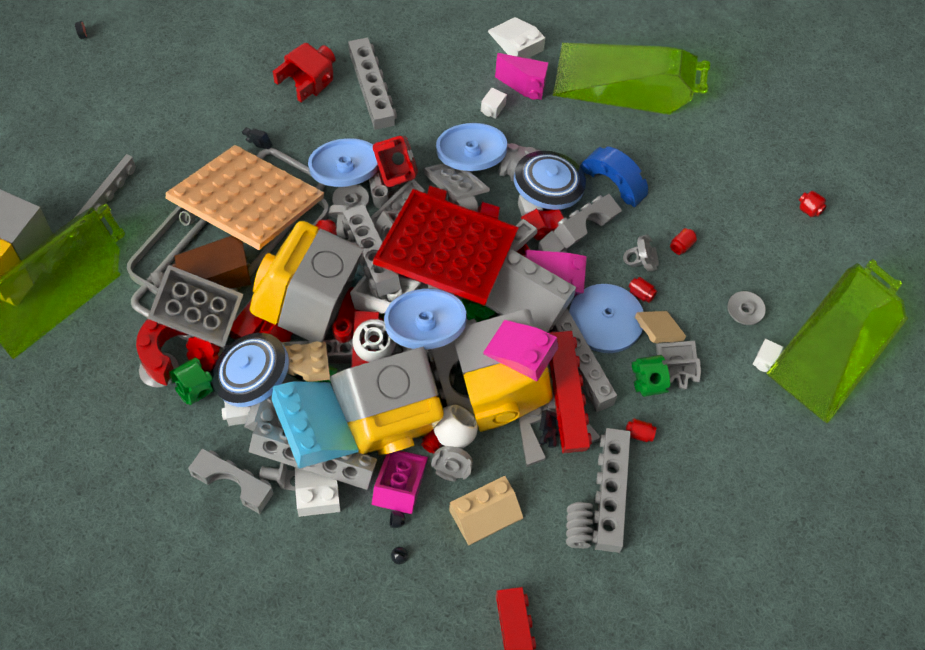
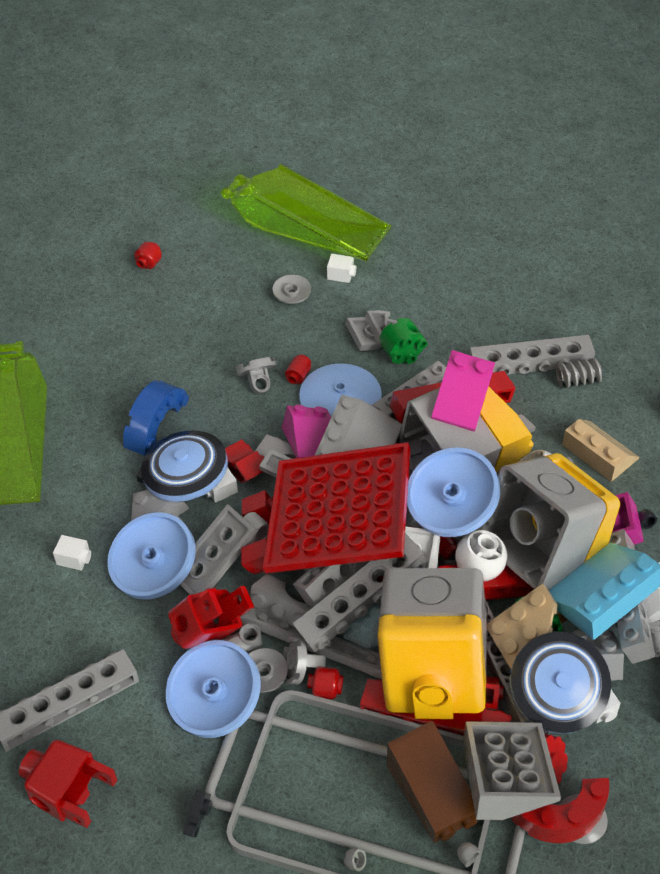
camera: 100 degrees left, 10 degrees down
(191, 381) = (590, 756): green brick -> none
(245, 196) = (317, 773): light nougat plate -> none
(522, 74) = (28, 522): dark pink slope -> none
(574, 228) = (250, 426): light grey arch -> none
(641, 430) = (460, 343): red brick -> none
(660, 326) = (342, 345): tan tile -> none
(683, 241) = (225, 346): red brick -> none

